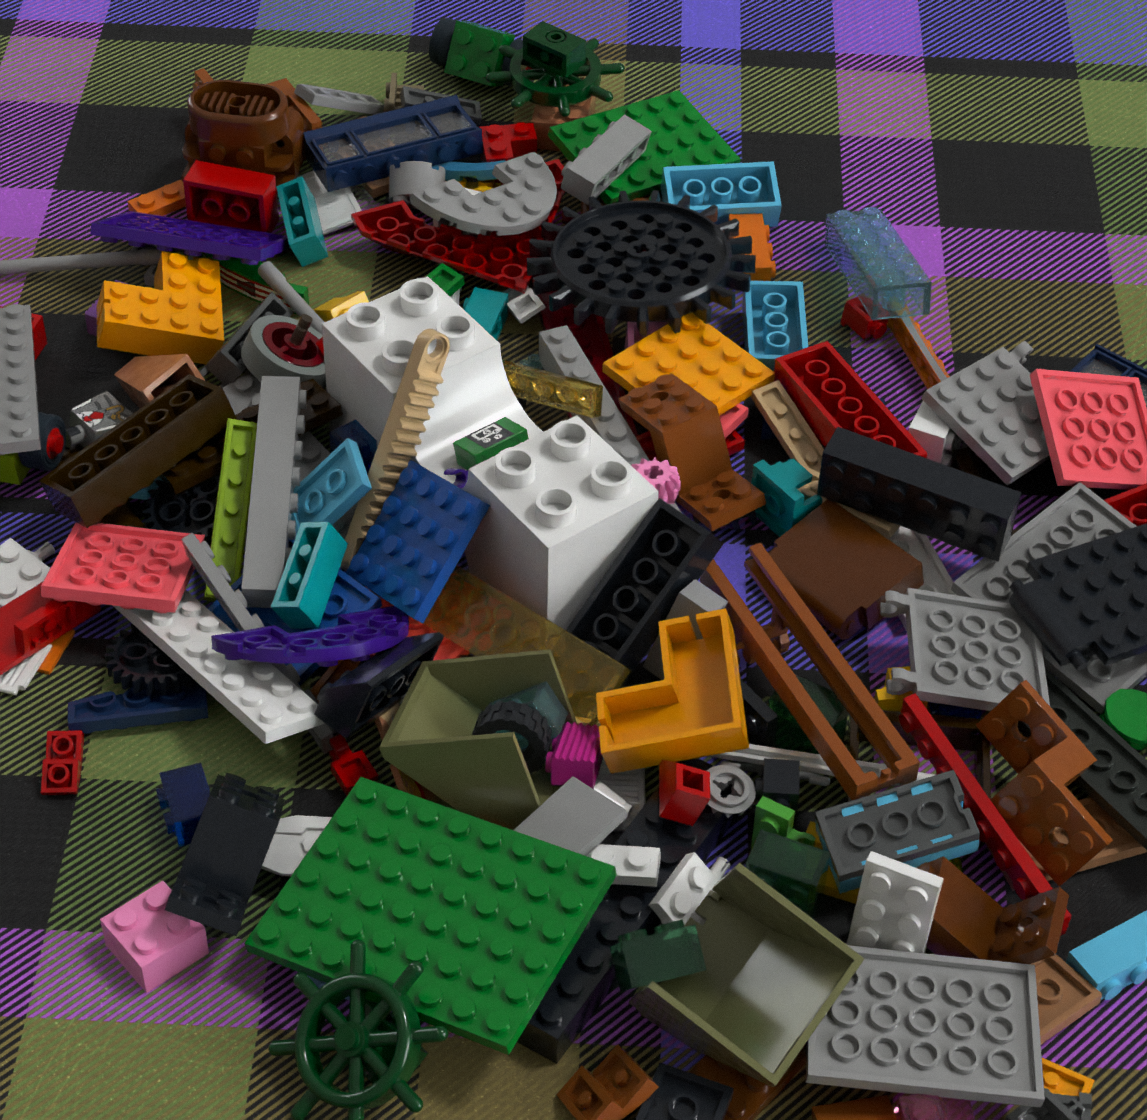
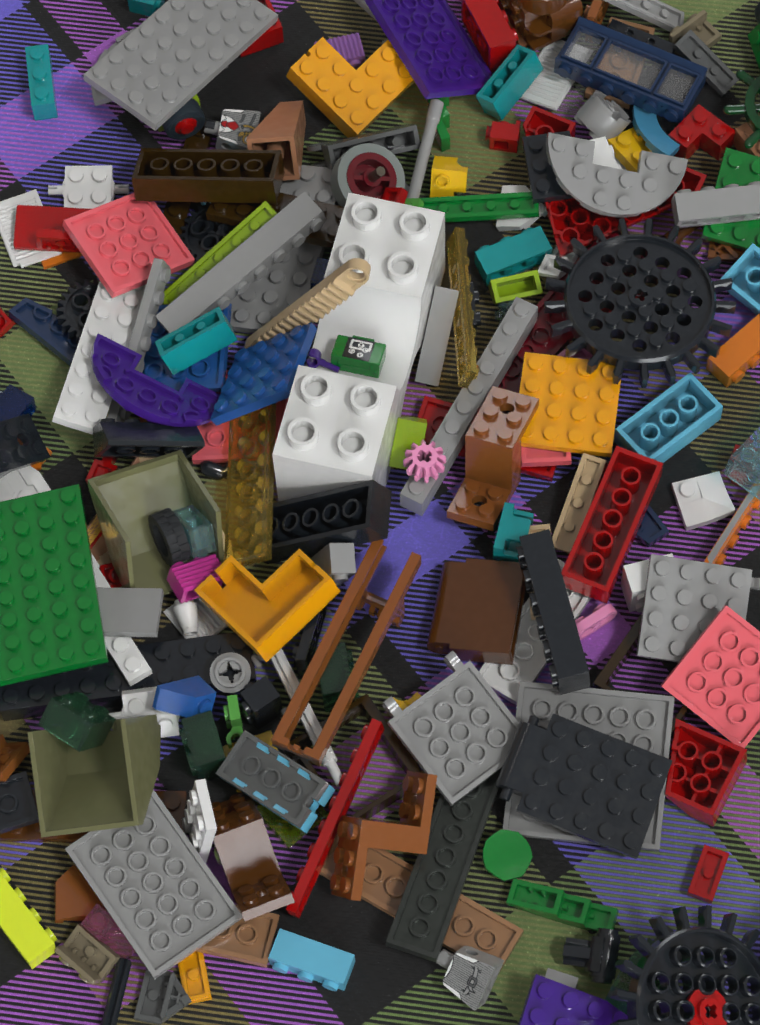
camera: 55 degrees right, 20 degrees up
(332, 486) = (265, 298): medium azure plate -> none
(348, 262) = (504, 136): none -> red brick
(429, 239) = (540, 174): none -> black plate
(519, 338) = (519, 285): none -> lime brick
(682, 792) = (205, 648): red slope -> none
(723, 843) = (185, 697): none -> blue slope
(878, 363) = (702, 500): none -> white plate

